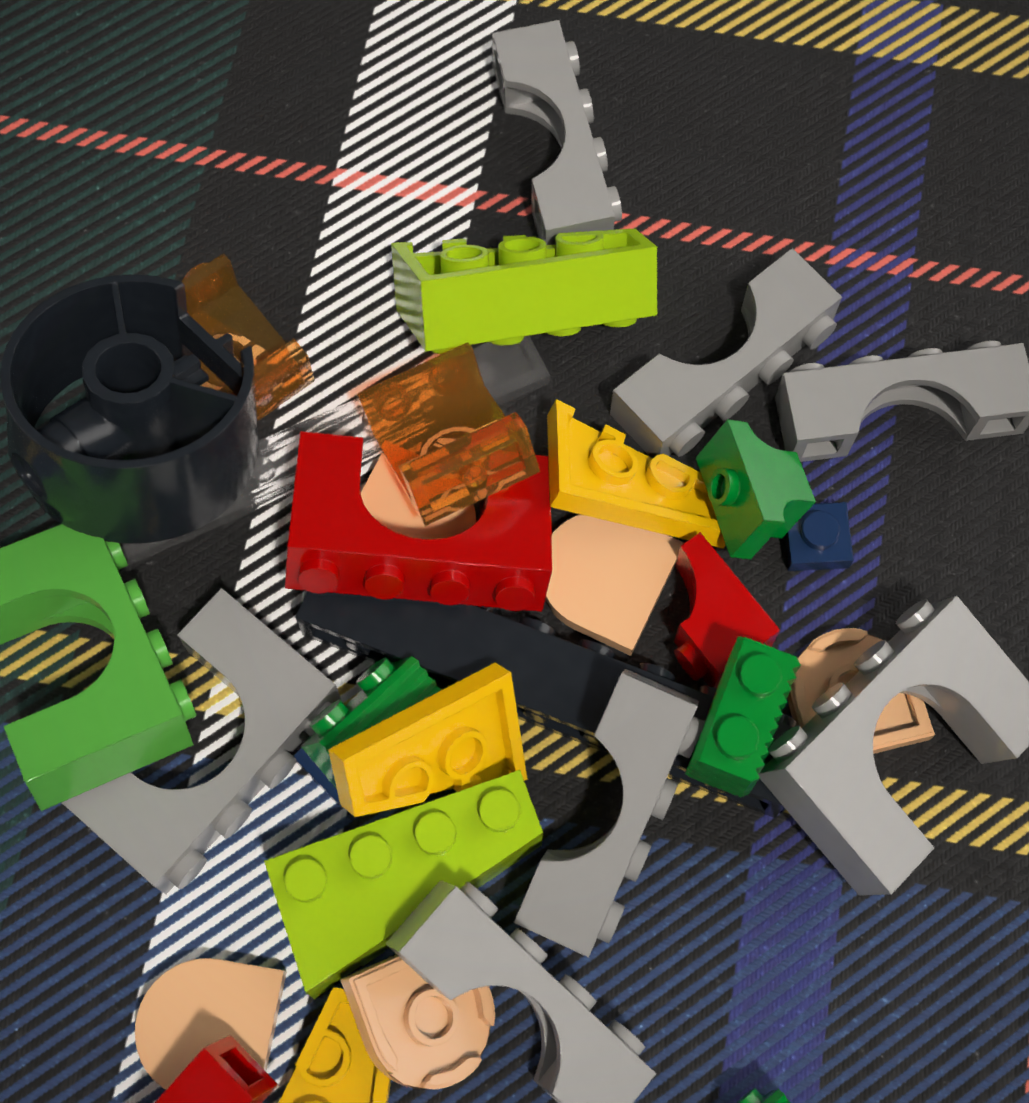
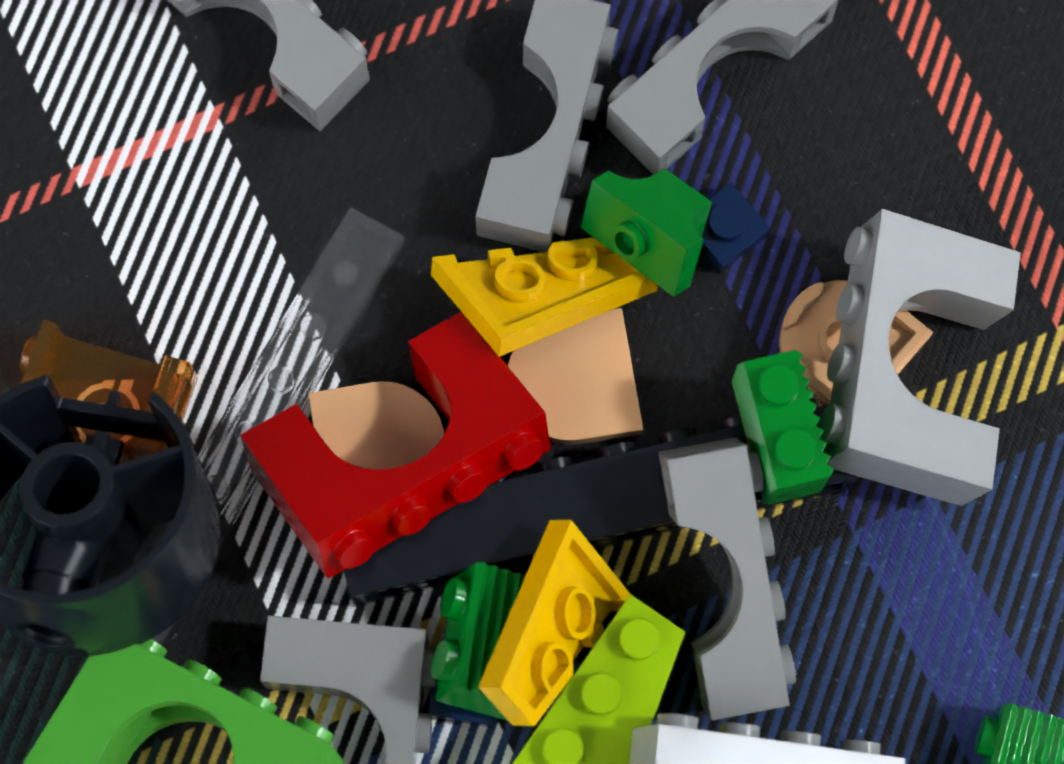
camera: 35 degrees left, 5 degrees up
(447, 434) = (365, 353): clear orange panel -> none
(524, 287) = (329, 176): lime wedge -> none
(718, 613) = (695, 350): red arch -> none

